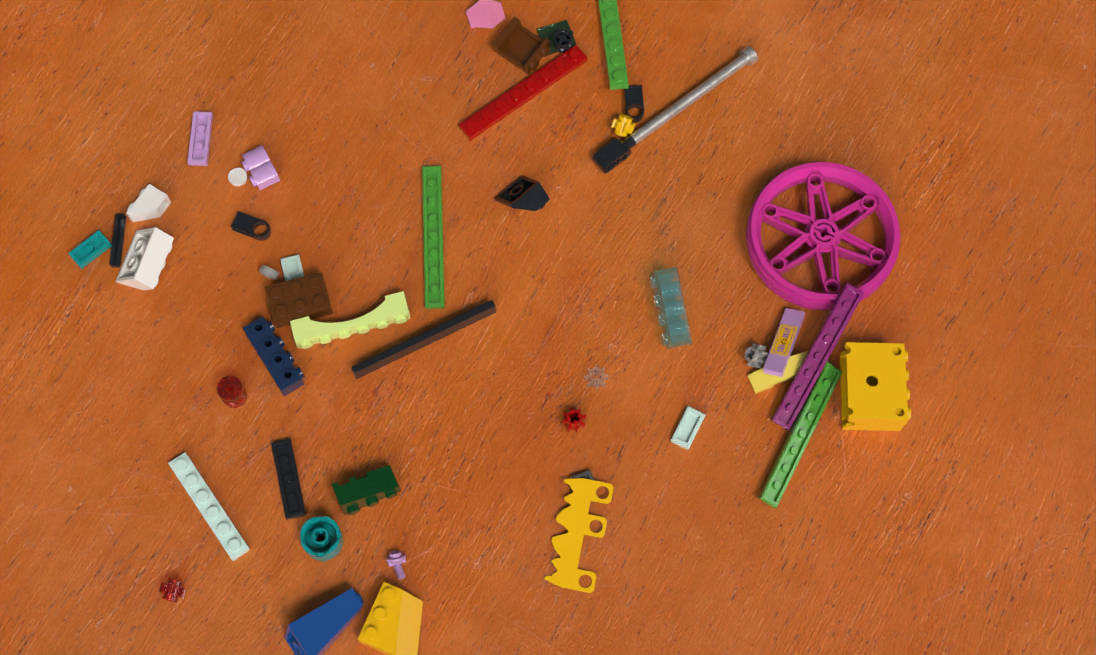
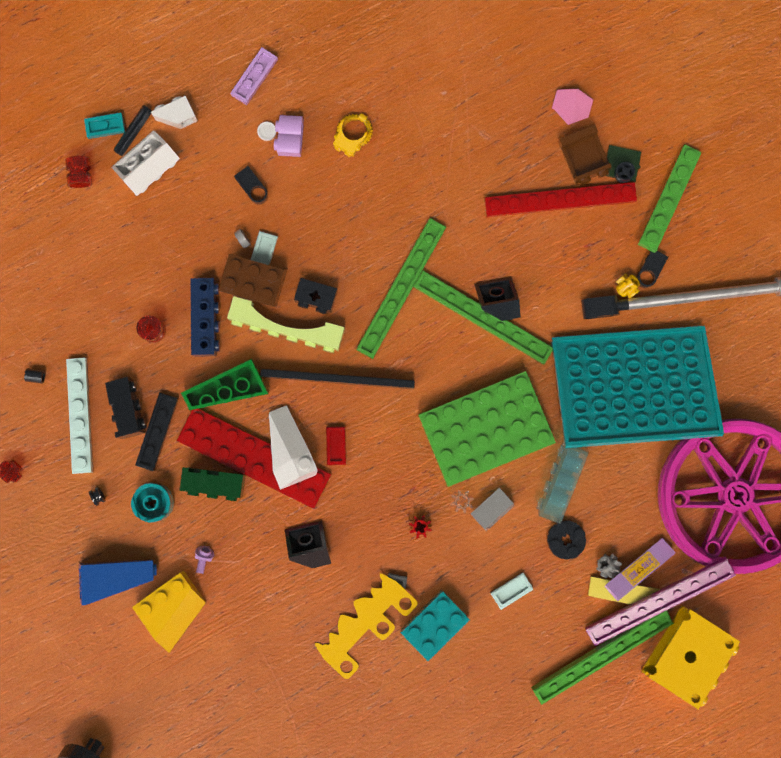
camera: 30 degrees right, 15 degrees up
(88, 298) = (78, 172): none -> clear red wheel
(147, 494) = (34, 376): none -> black hinge
(248, 472) = (125, 408): none -> black wedge
(266, 565) = (97, 496): none -> black bush
(316, 147) = (351, 146): none -> yellow piece
(332, 397) = (229, 386): none -> green wedge
(353, 279) = (326, 293): none -> black brick
(393, 447) = (246, 455): none -> red plate
(419, 421) = (289, 451): none -> white wedge
(457, 397) = (336, 445): none -> red tile
(486, 492) = (308, 545): none -> black slope
(518, 220) = (472, 311): none -> bright green tile
(578, 305) = (486, 429): none -> bright green brick
(627, 368) = (492, 509): none -> light grey hinge
(639, 494) = (434, 625): none -> teal brick
(681, 196) = (636, 387): none -> teal plate
(700, 366) = (577, 538): none -> black plate

